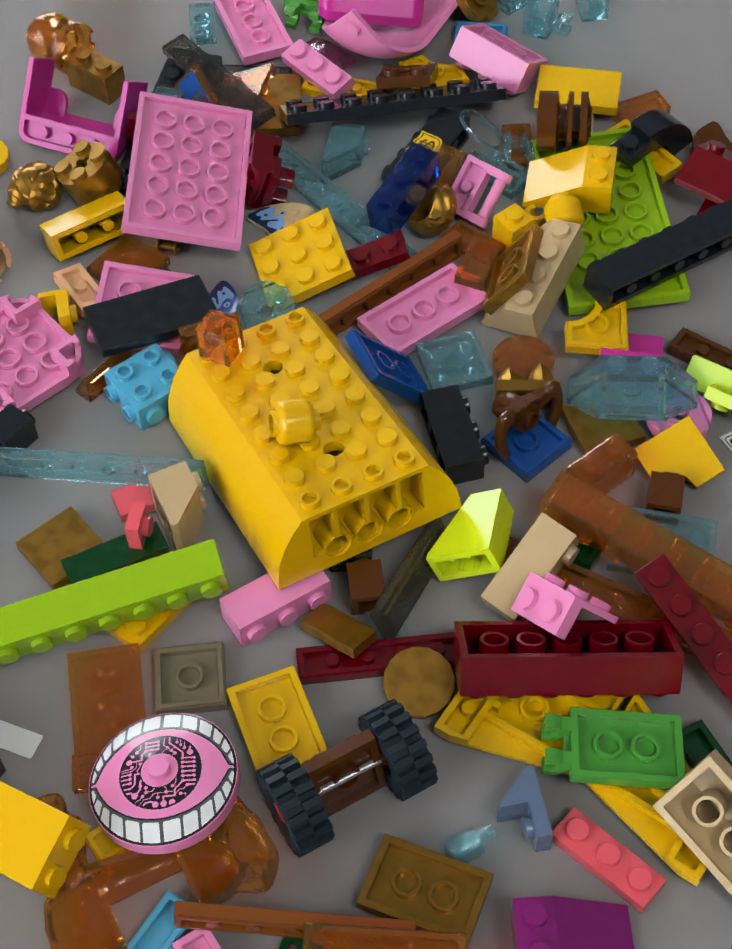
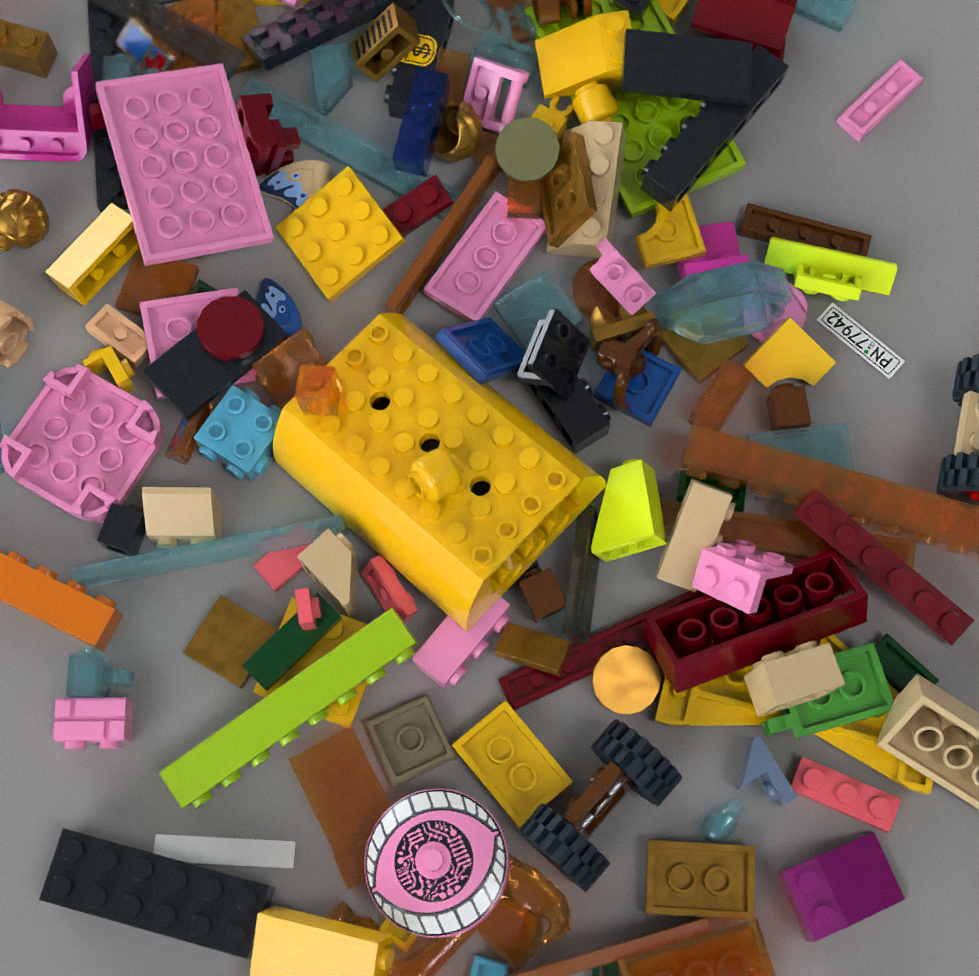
camera: 20 degrees left, 20 degrees up
(65, 423) = (181, 515): none -> tan slope
(89, 172) = (72, 189): pearl gold brick -> none
(172, 295) = (230, 328): none -> dark red tile
(224, 533) = (387, 589): none -> coral plate
(263, 294) = (334, 291): clear light blue plate -> none
(397, 131) = (385, 42): none -> pearl gold brick
(452, 383) = (554, 354): none -> black bracket
(489, 230) = (527, 149): none -> olive tile
(536, 342) = (621, 278): none -> bright pink bracket
(579, 705) = (793, 678): none -> tan brick
(655, 196) = (687, 67): none -> black tile

